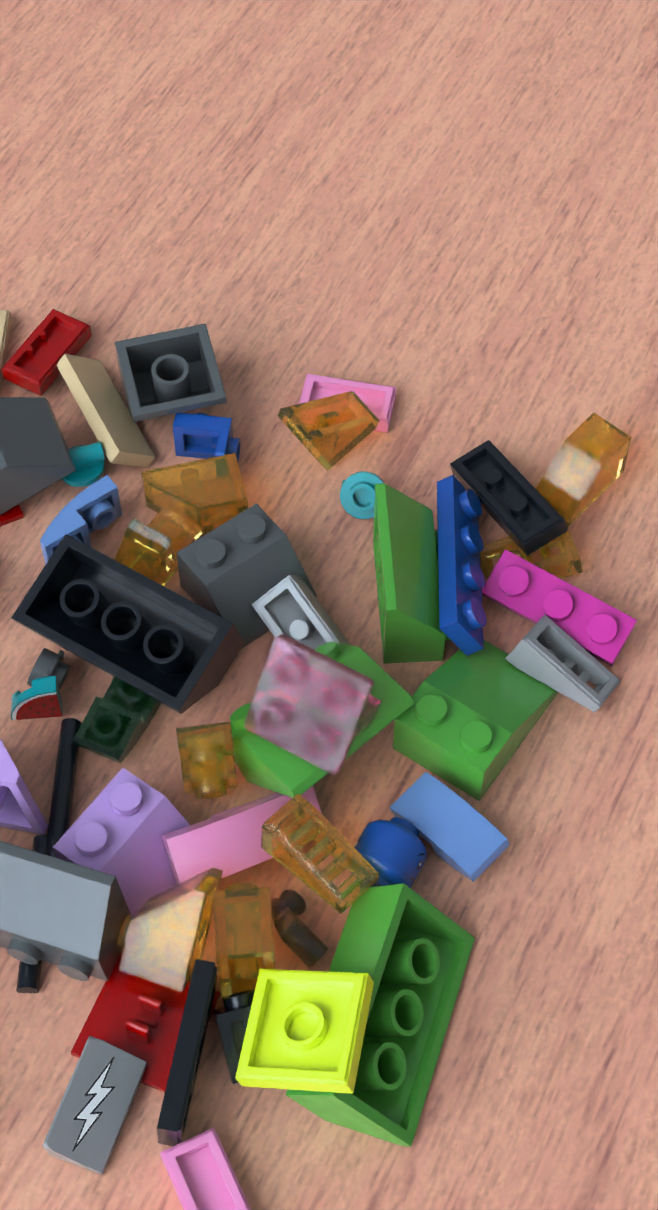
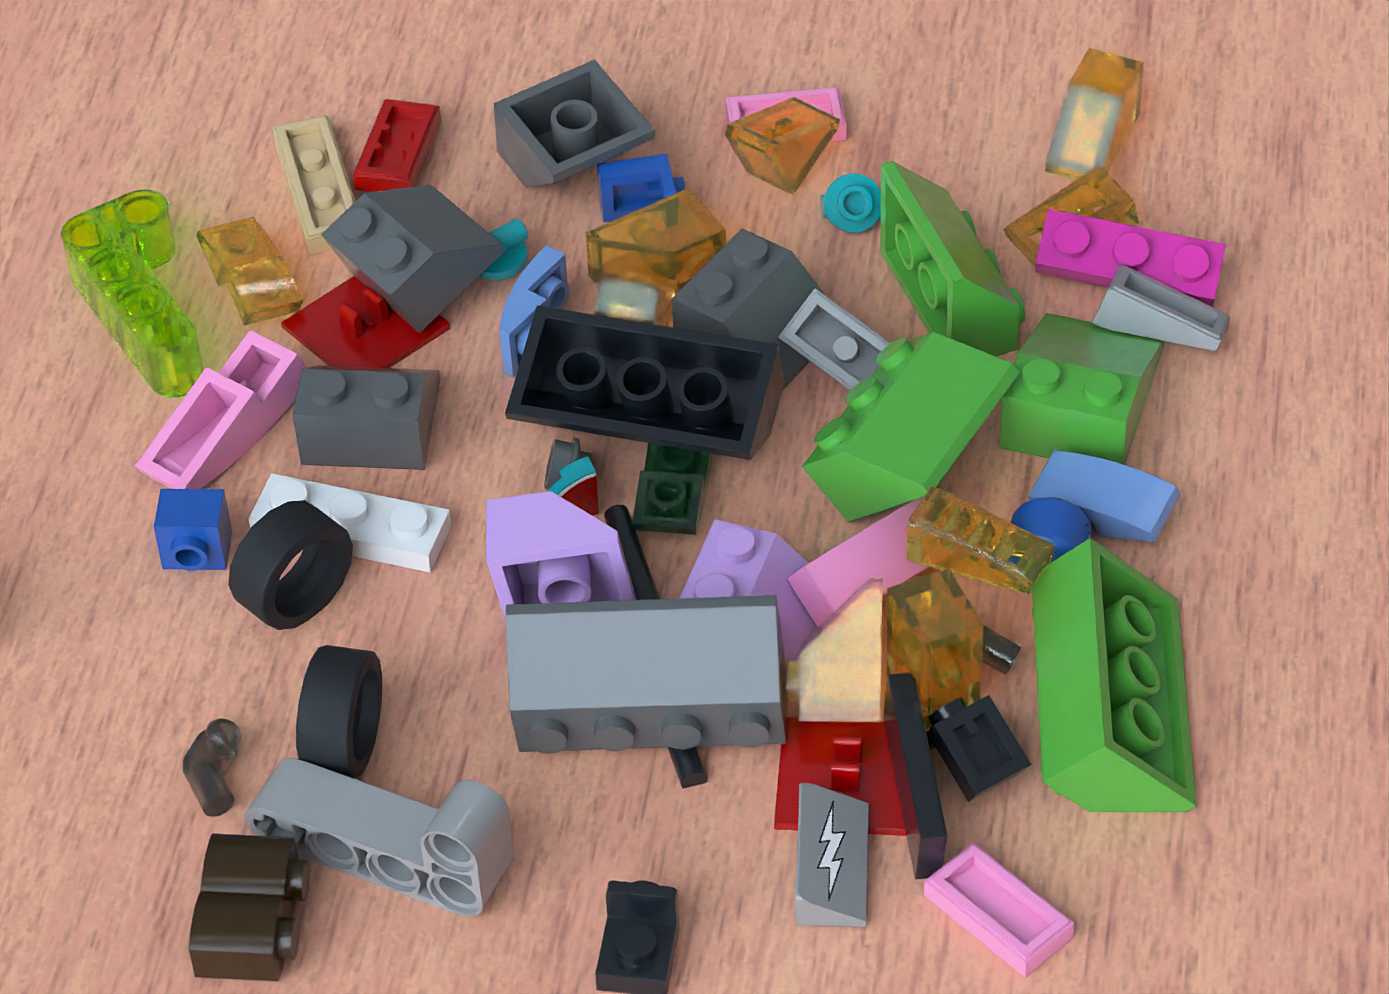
camera: 15 degrees left, 10 degrees down
(105, 411) = (501, 190): tan tile -> none
(207, 759) = (804, 488): clear yellow slope -> none
(305, 1030) = (1045, 698): neon yellow tile -> none
(310, 704) = (914, 382): clear pink bracket -> none
(460, 565) = (1008, 244): blue plate -> none
(509, 497) = (1024, 162): black tile -> none

